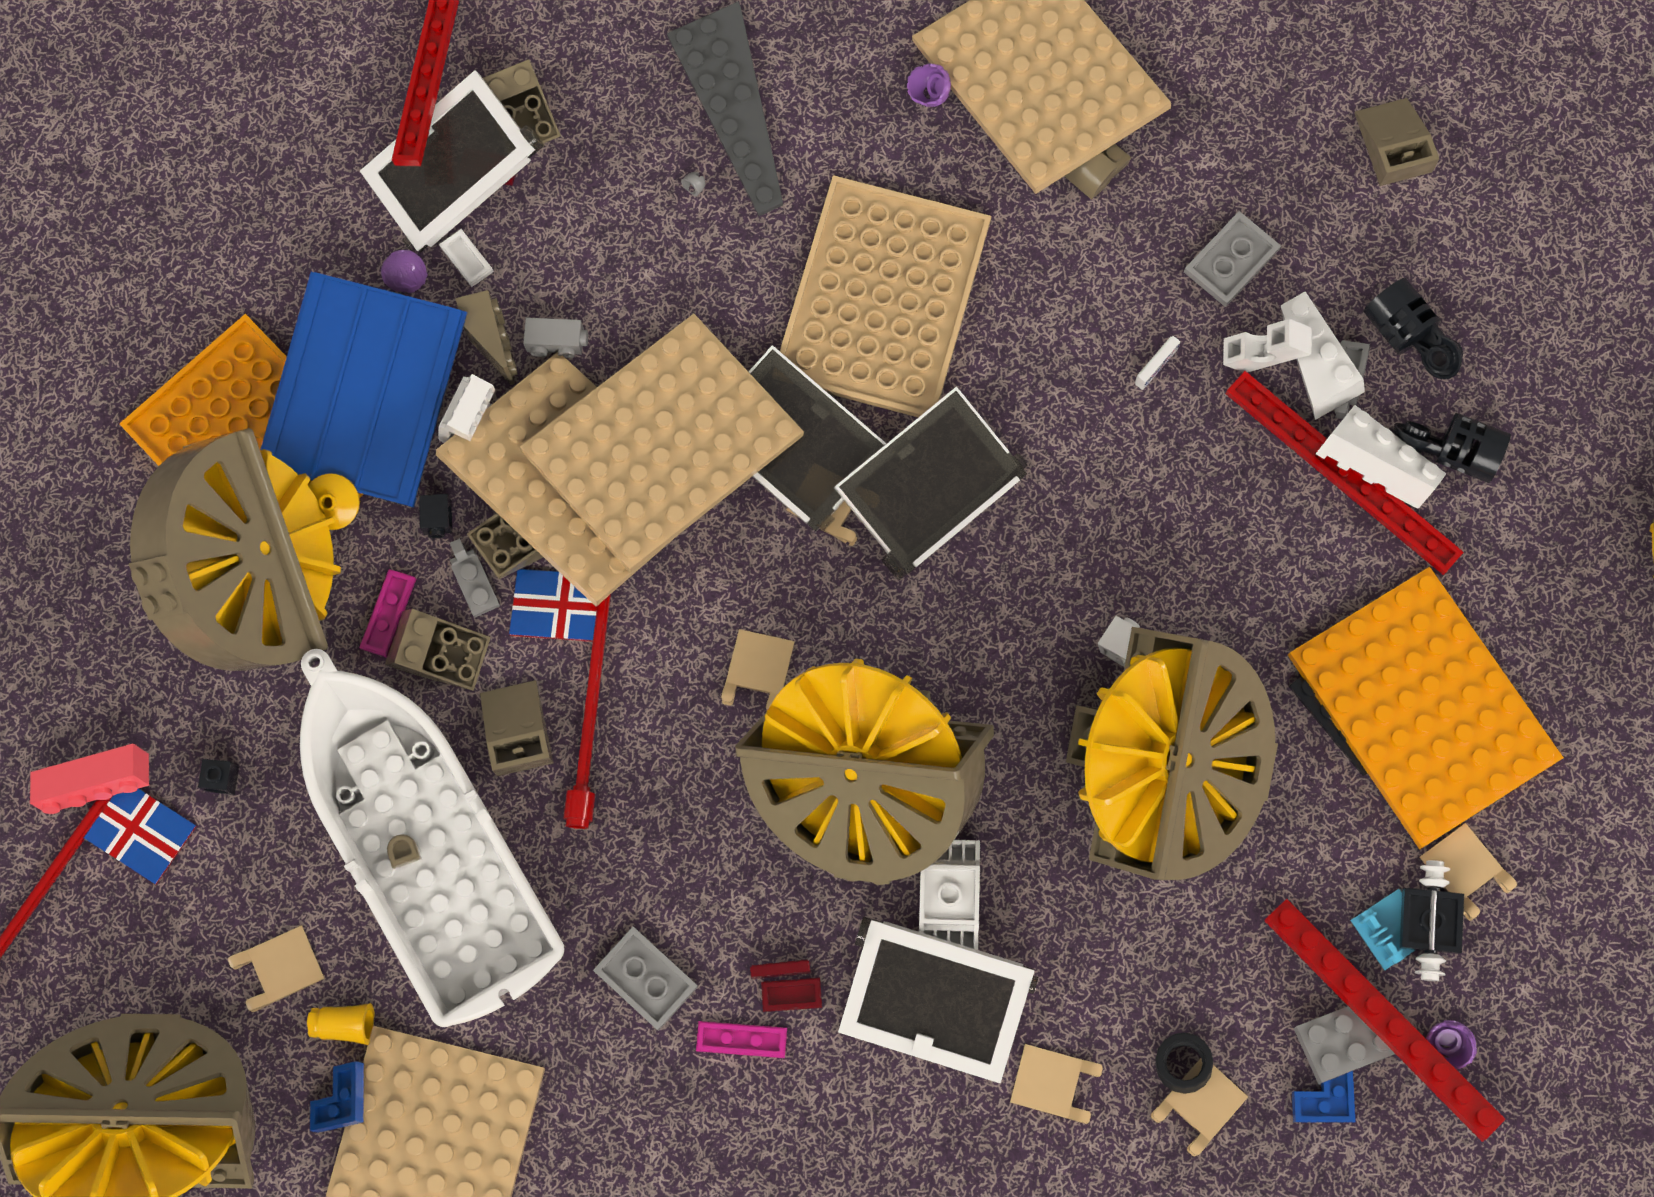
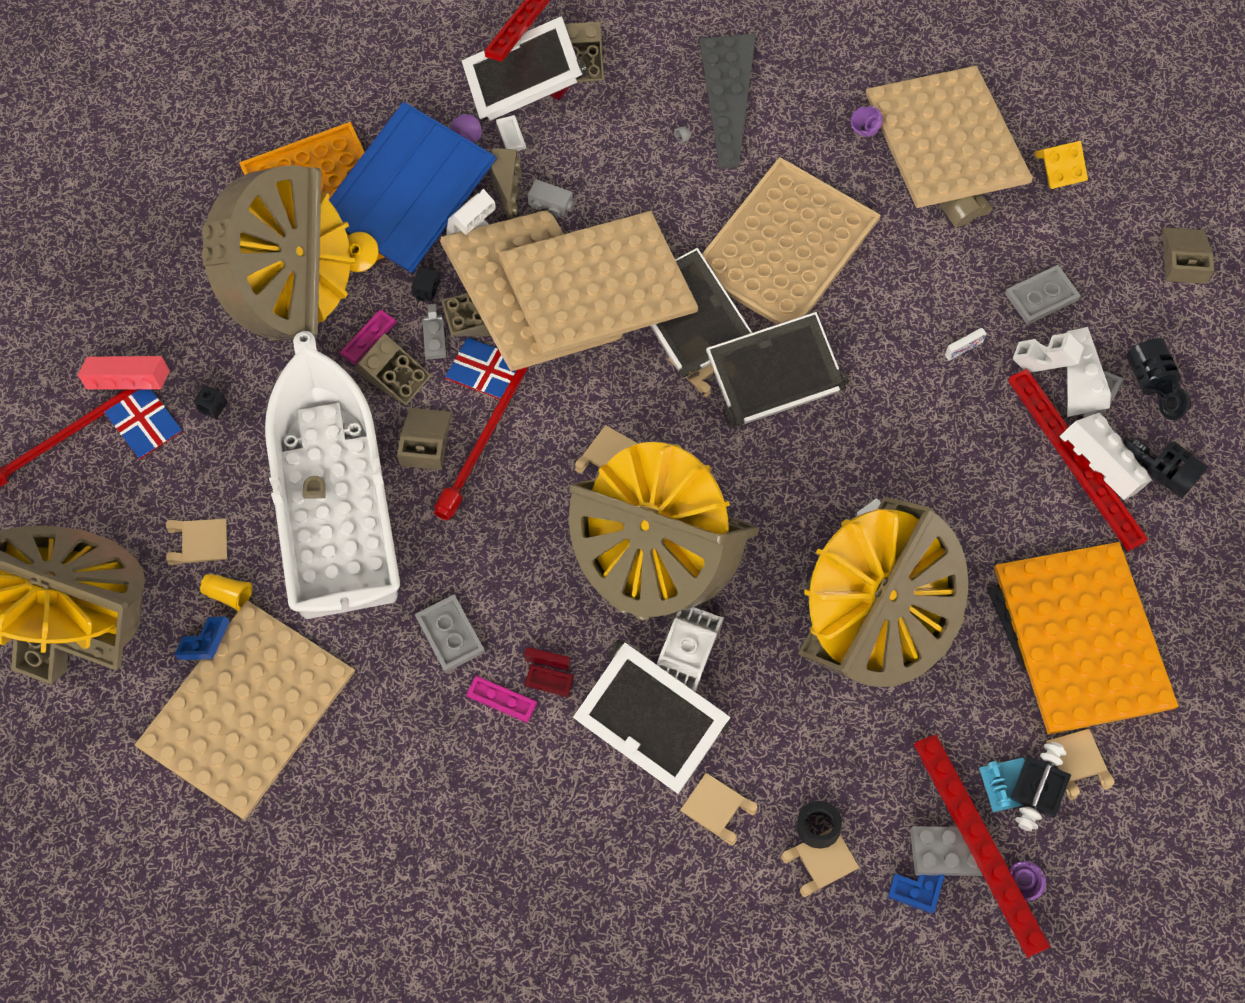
camera: 15 degrees right, 10 degrees down
(1201, 61) = (1064, 164): none -> yellow bracket

